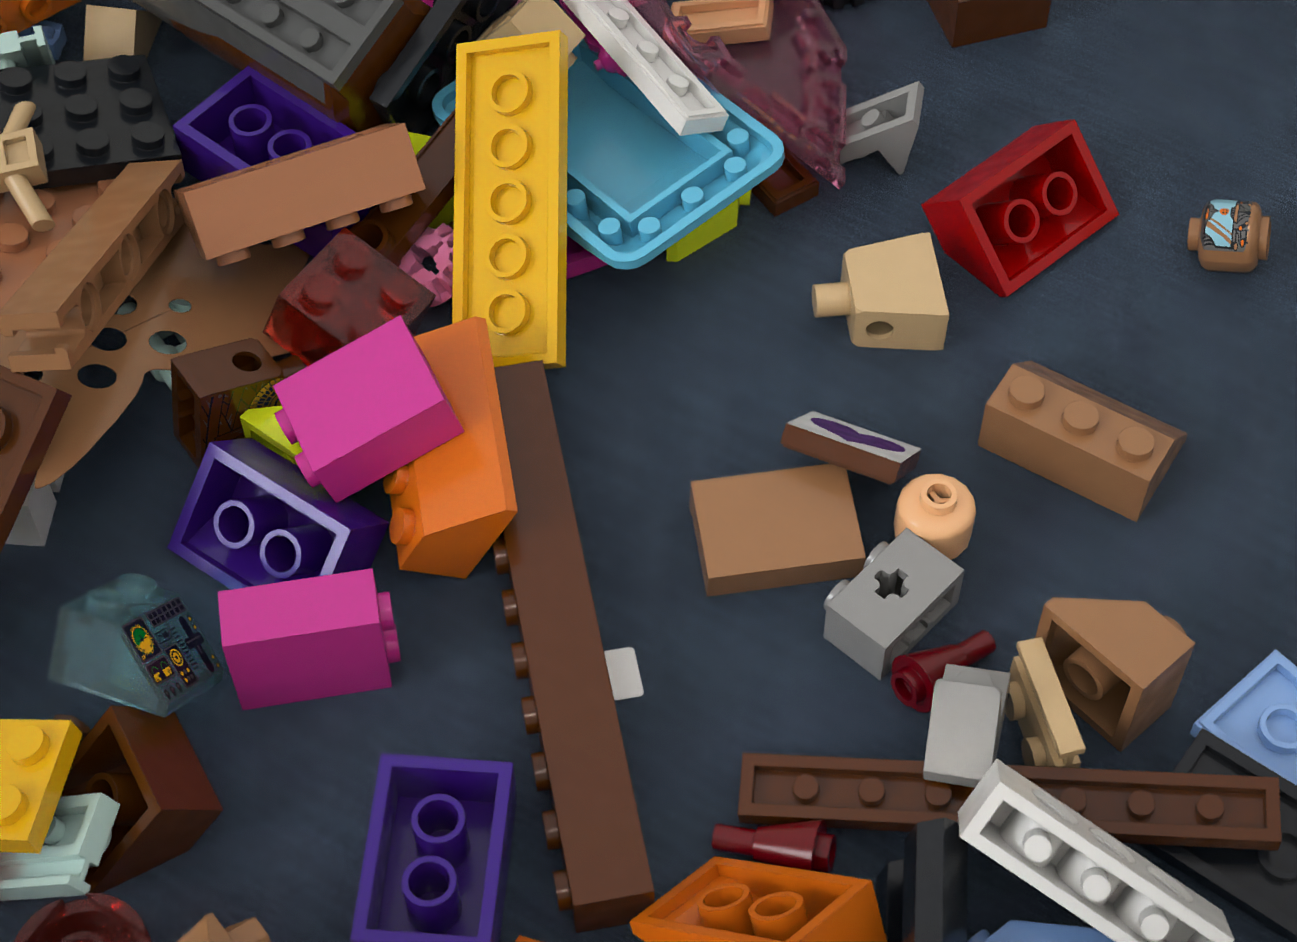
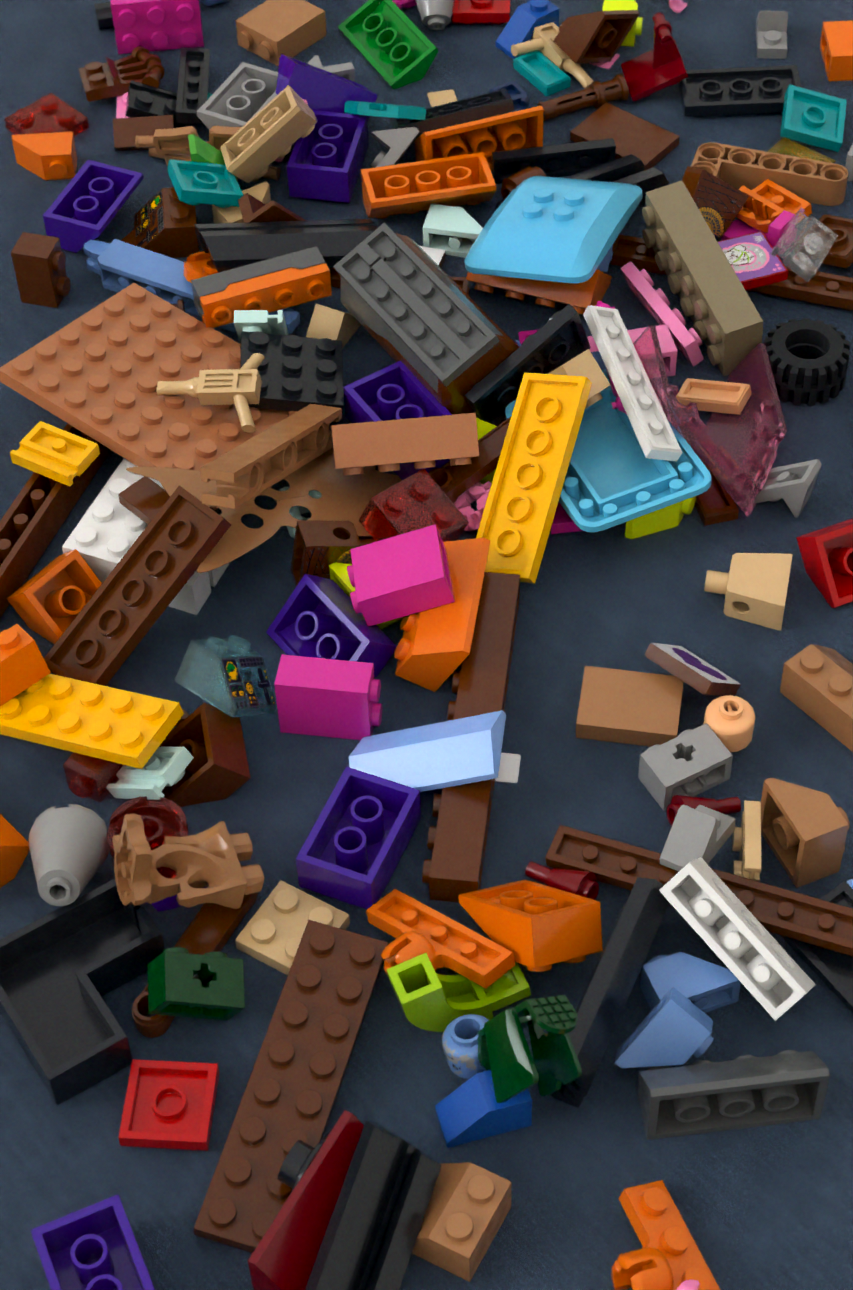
camera: 20 degrees right, 5 degrees down
(509, 690) = (435, 753): none -> light blue slope

